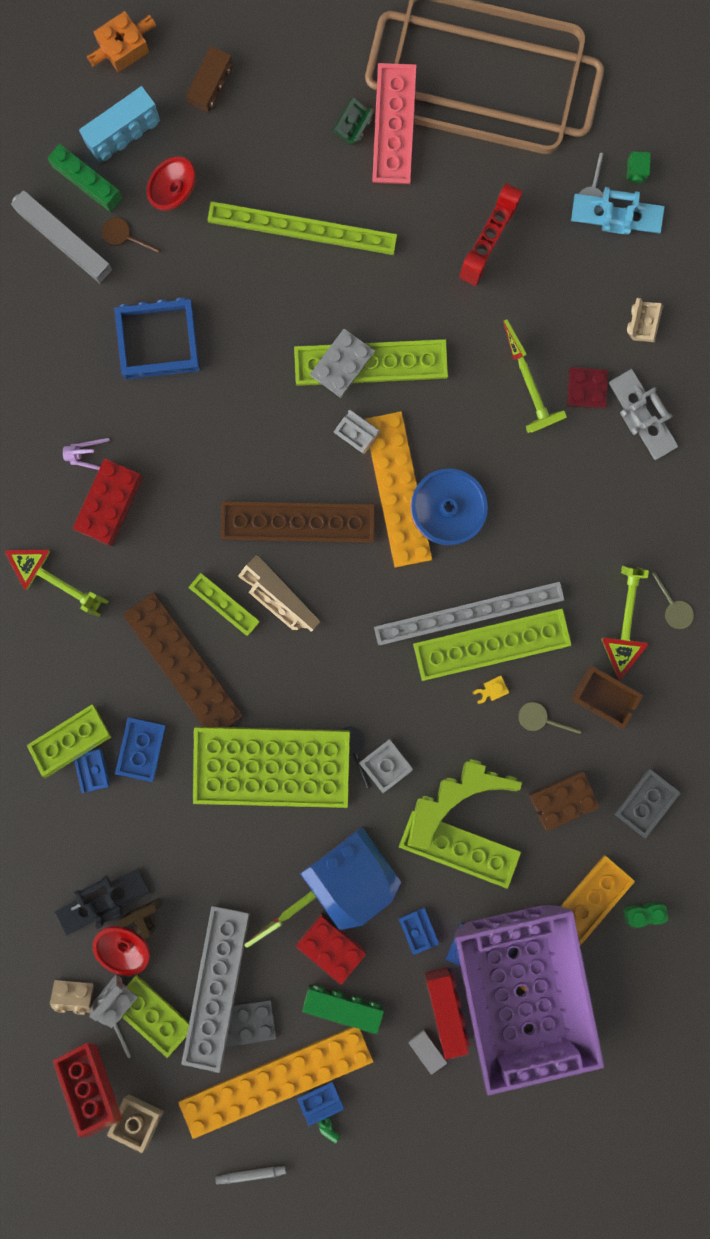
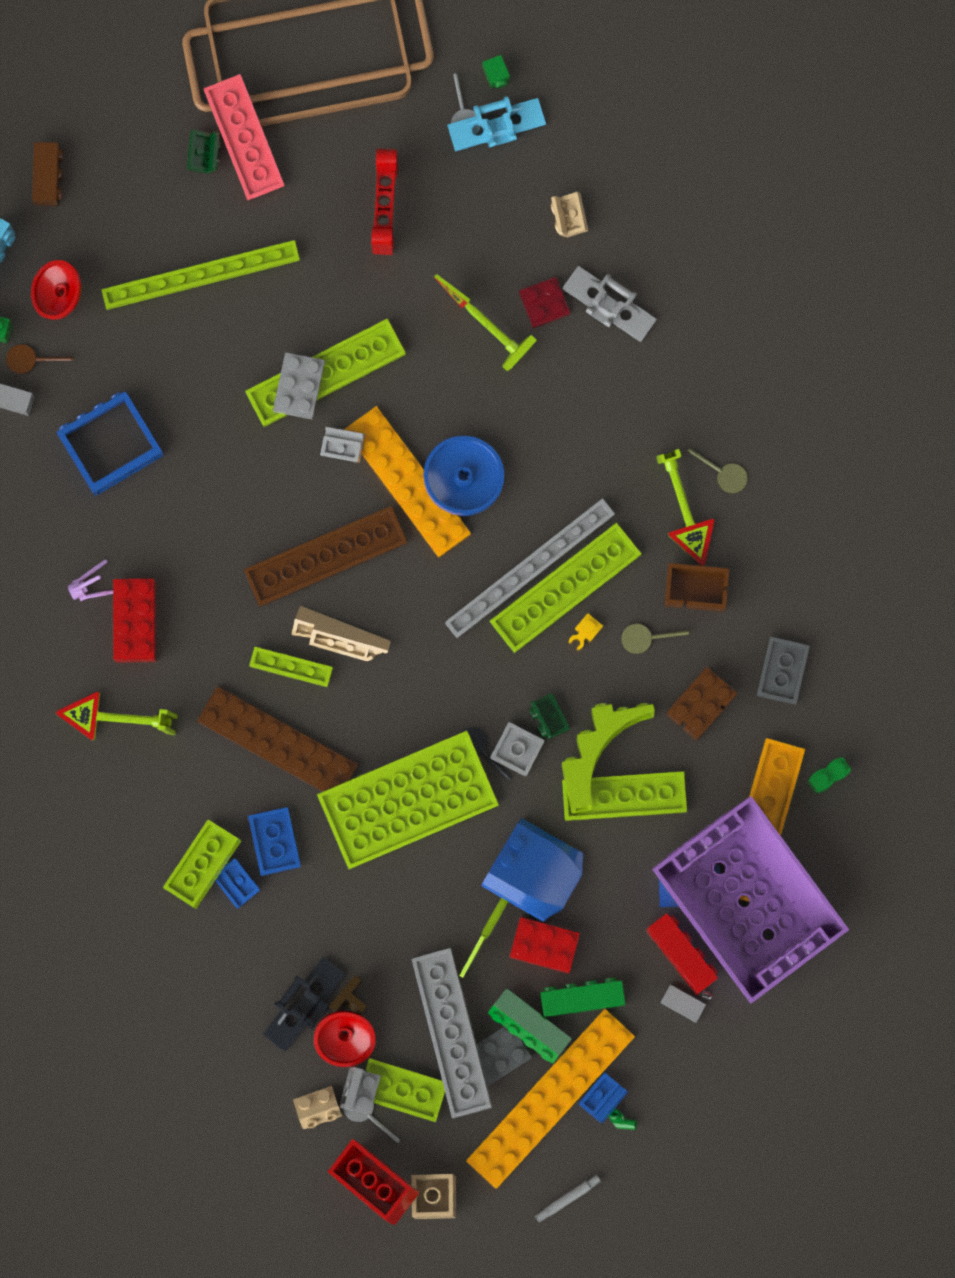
camera: 15 degrees left, 5 degrees down
(286, 1013) = (529, 1026): none -> green brick
(418, 931) = (621, 891): blue plate -> none
(426, 750) = (549, 716): none -> dark green bracket

